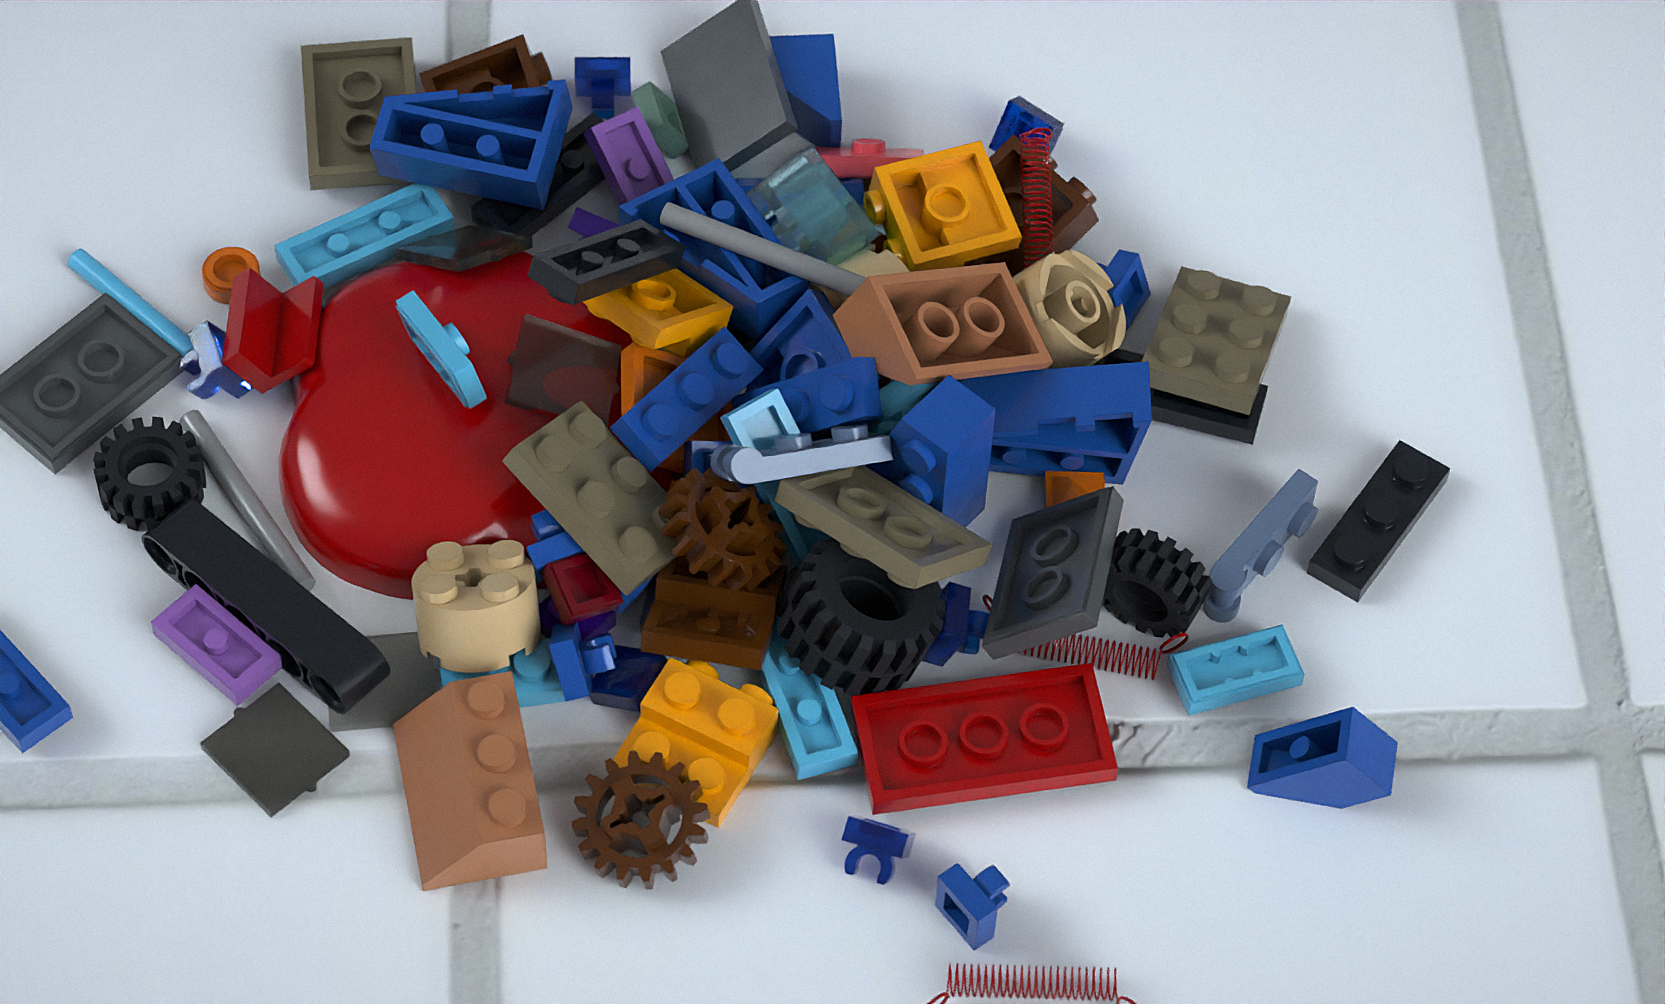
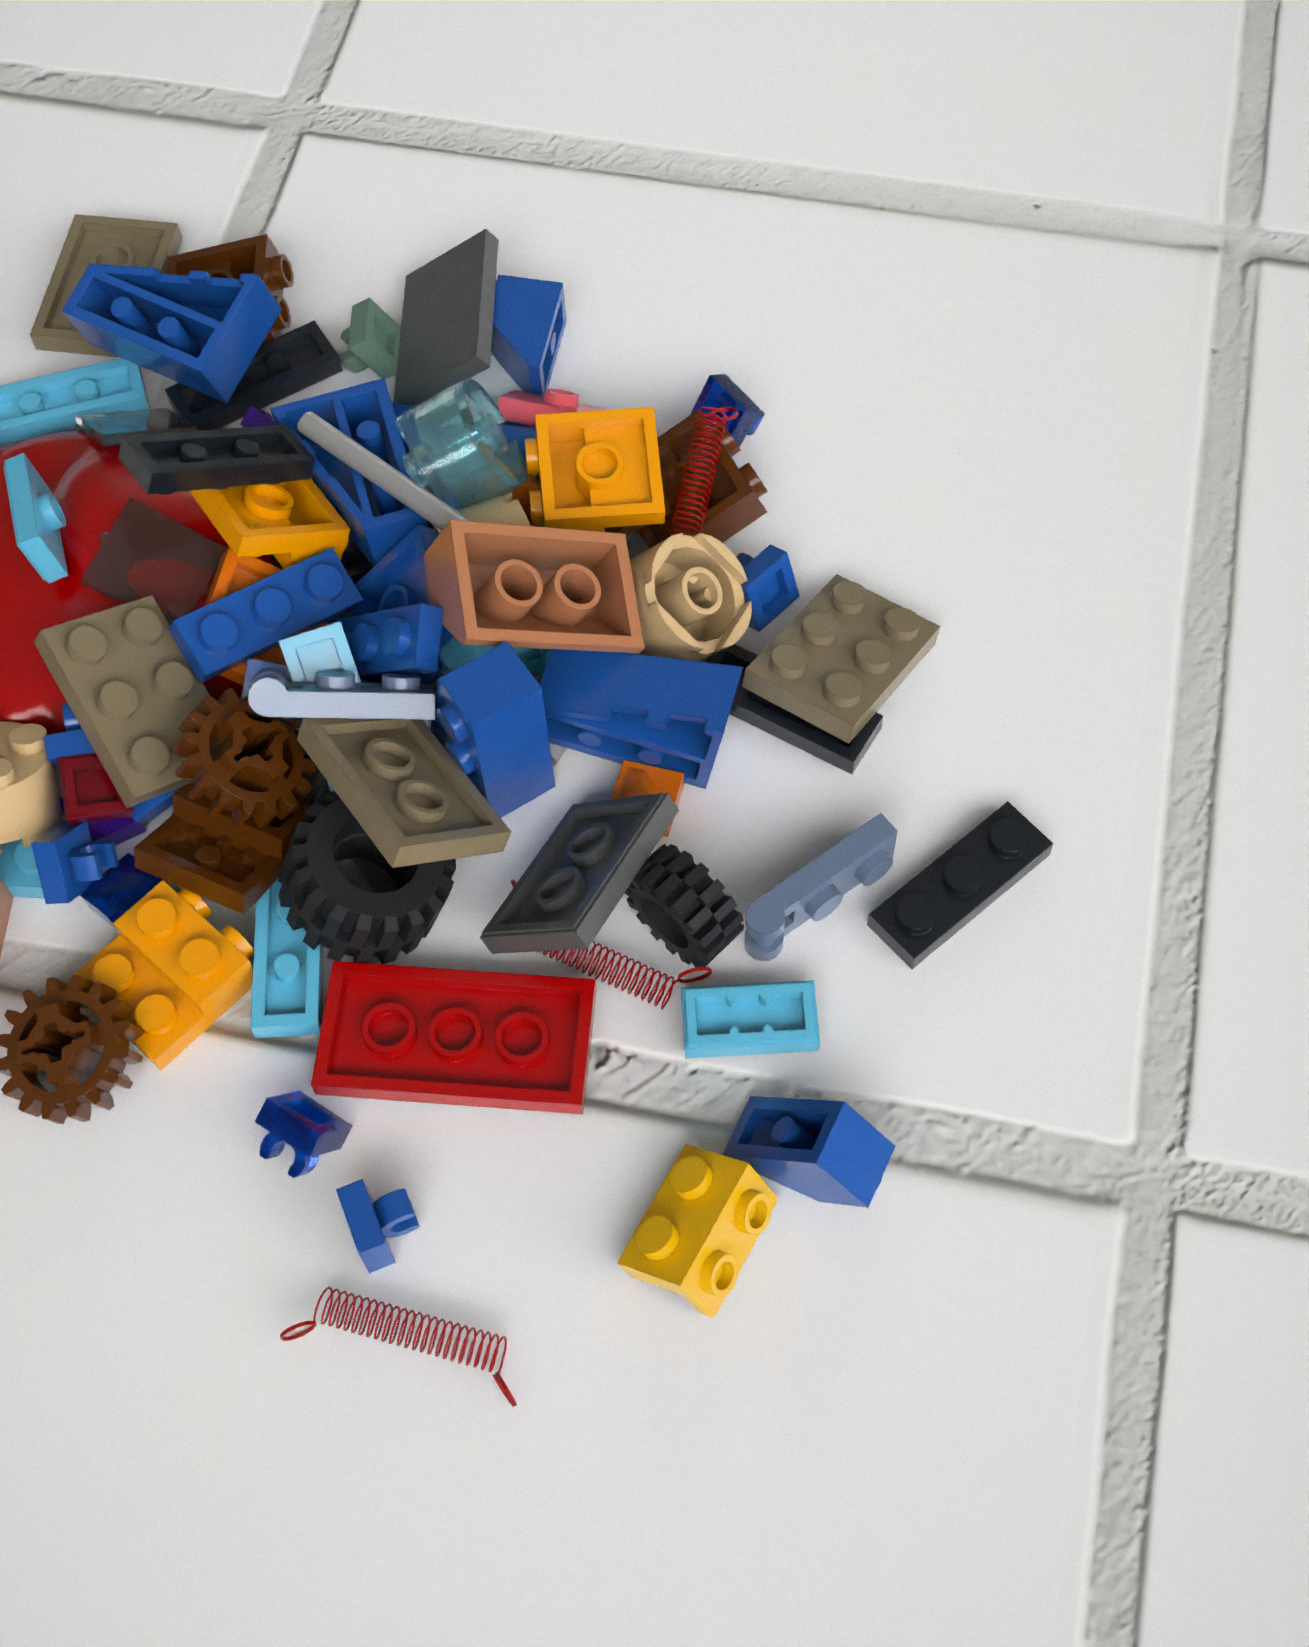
camera: 20 degrees right, 5 degrees up
(603, 80) = (335, 294): clear blue tile -> none
(628, 155) = (322, 358): medium lavender plate -> none
(961, 626) = (466, 905): clear blue tile -> none
(1250, 845) = (700, 1228): none -> yellow bracket

